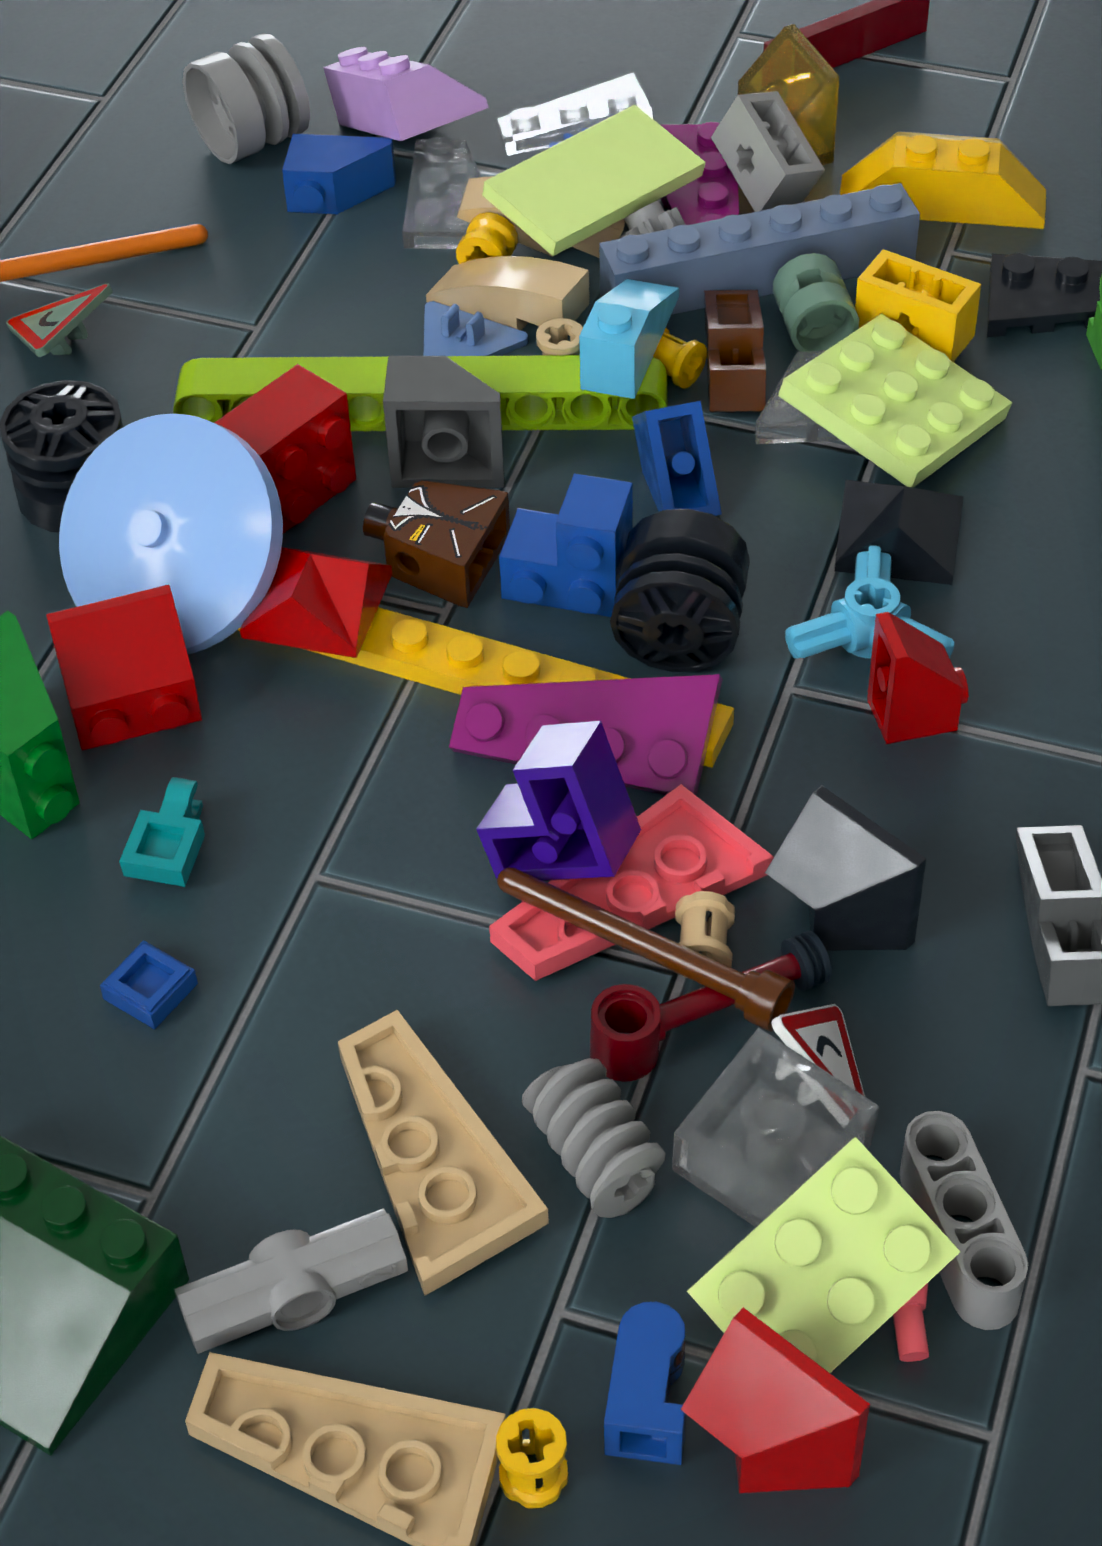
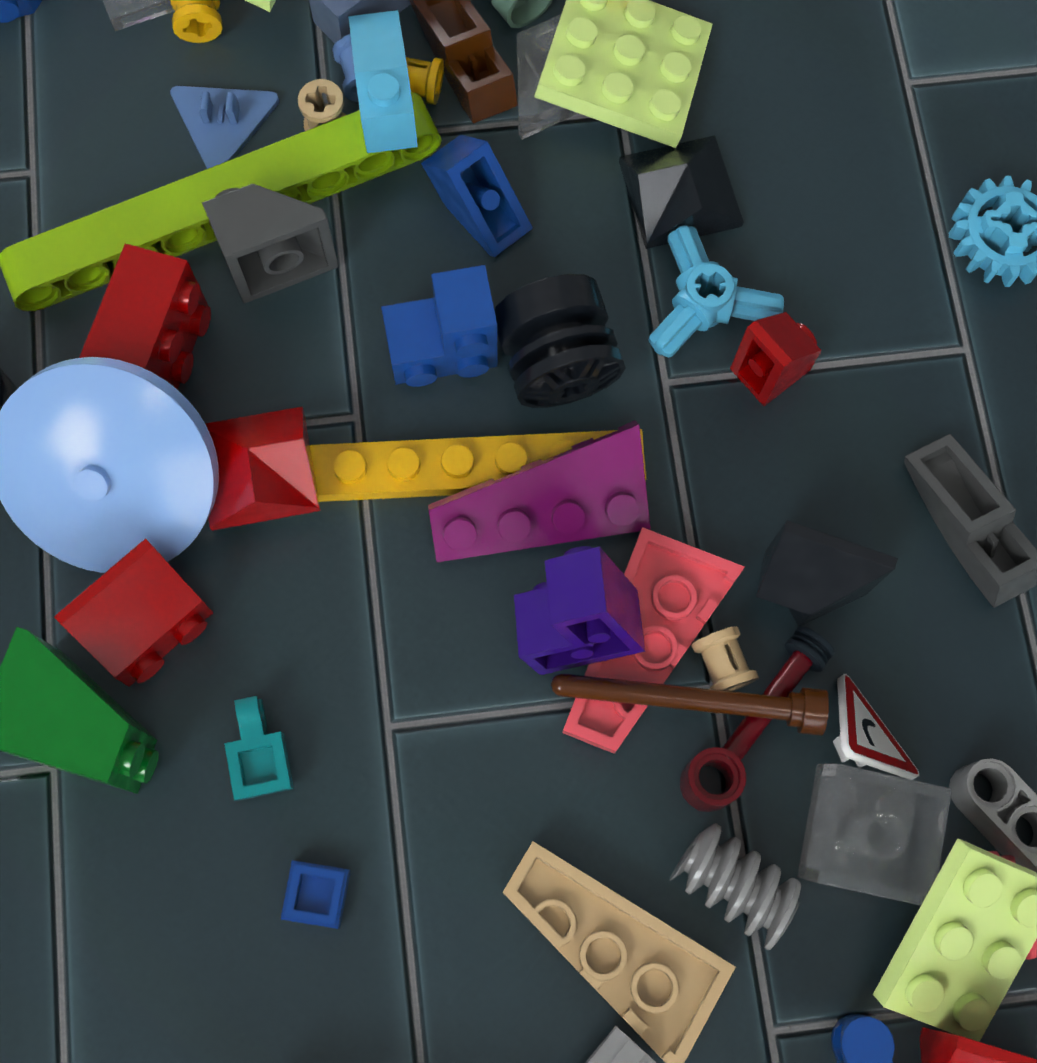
camera: 30 degrees left, 25 degrees up
(442, 537) = (321, 351): reddish brown torso -> none
(515, 289) = (245, 55): tan slope -> none

